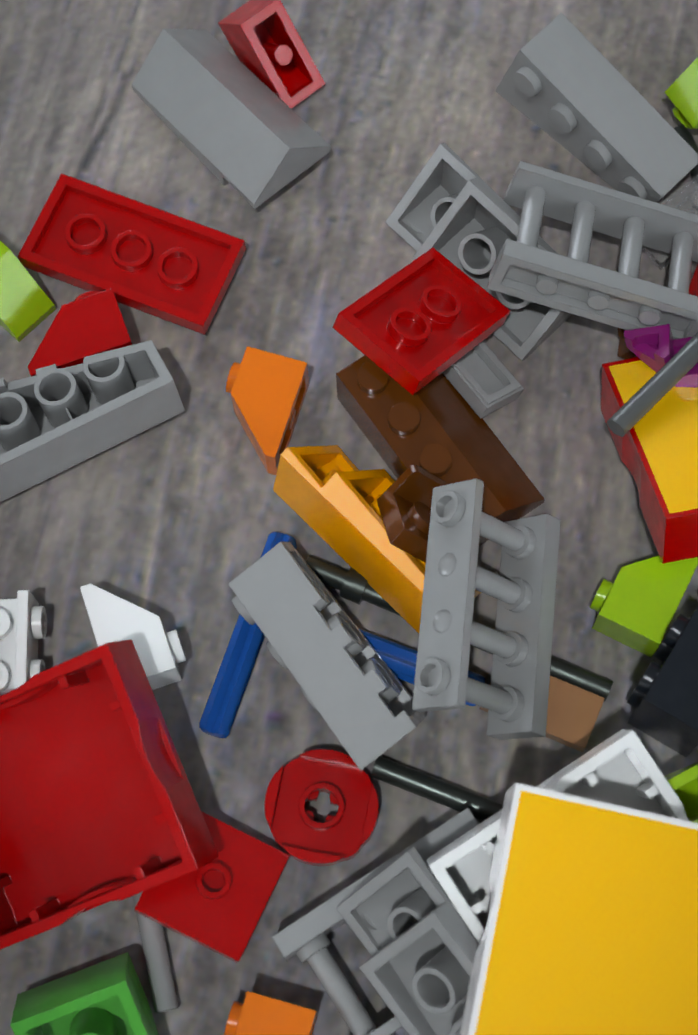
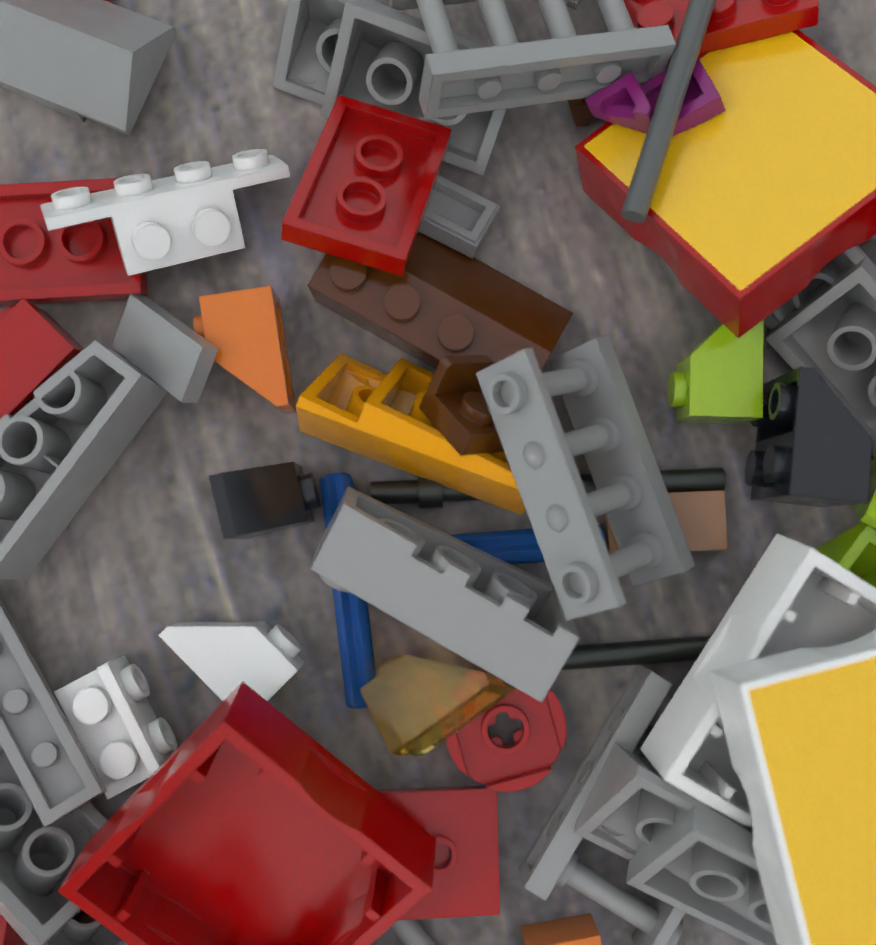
camera: 30 degrees left, 15 degrees up
(200, 374) = (164, 348): none -> light grey tile
(218, 523) = (264, 499): none -> black slope
(258, 281) = (171, 216): none -> white bracket
(271, 744) = (427, 701): none -> clear yellow slope

